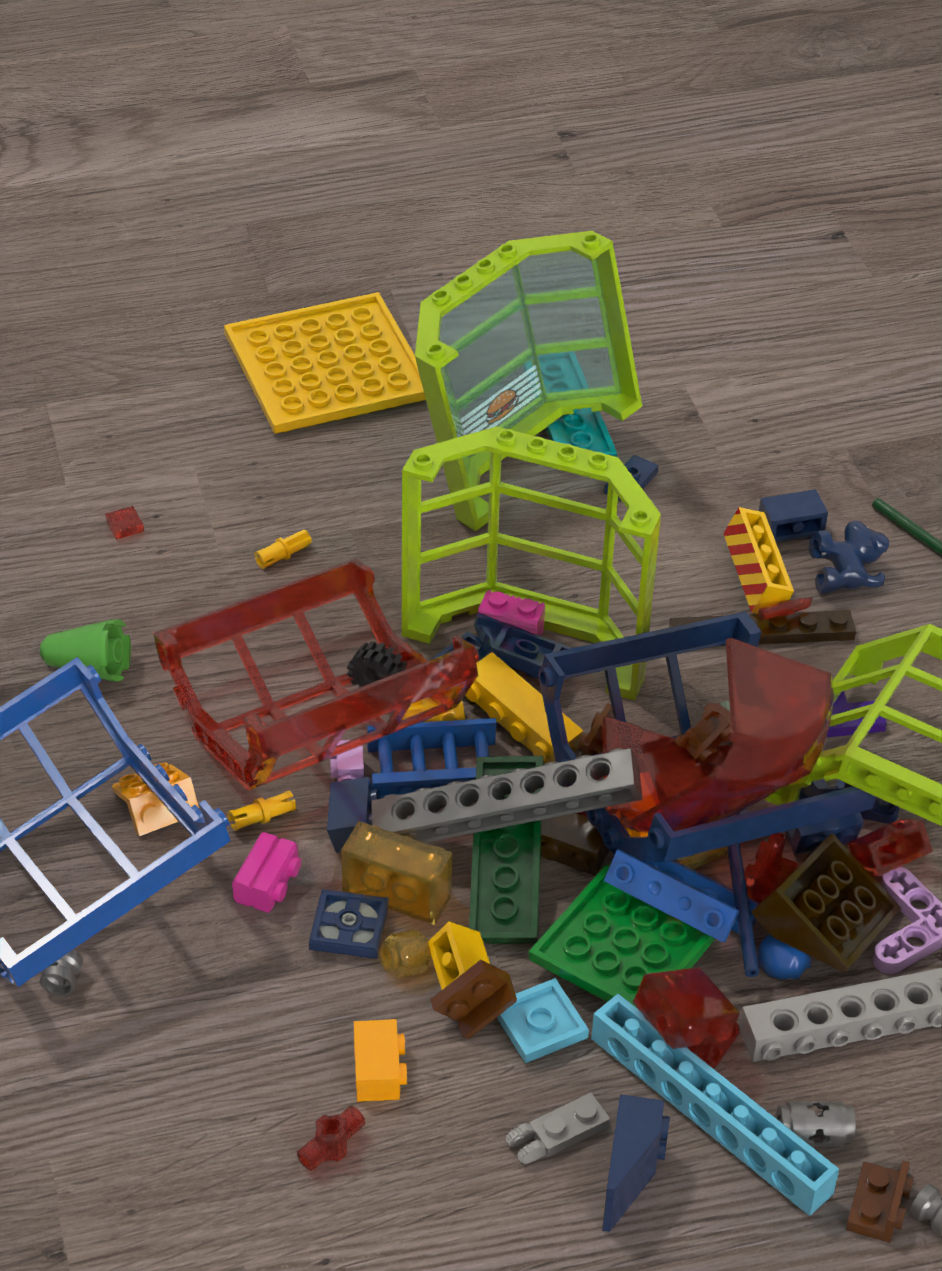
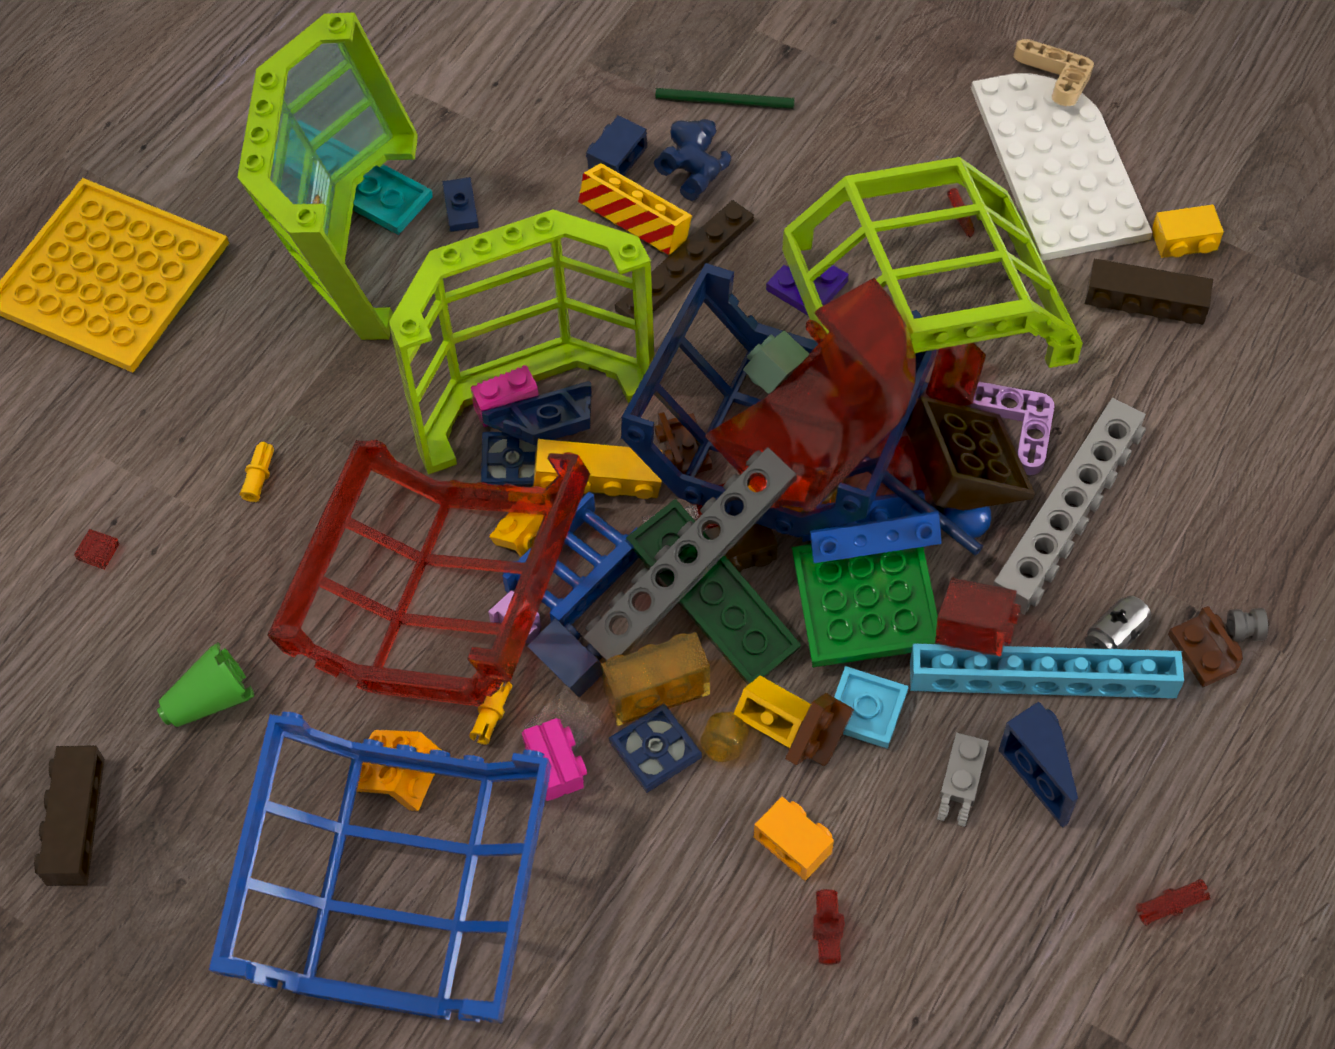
camera: 40 degrees left, 15 degrees up
(60, 976) = (486, 970): flat silver wheel -> none
(374, 663) = (458, 521): black tyre -> none
(707, 733) = (771, 383): reddish brown piece -> none
(784, 608) = (693, 234): clear red piece -> none

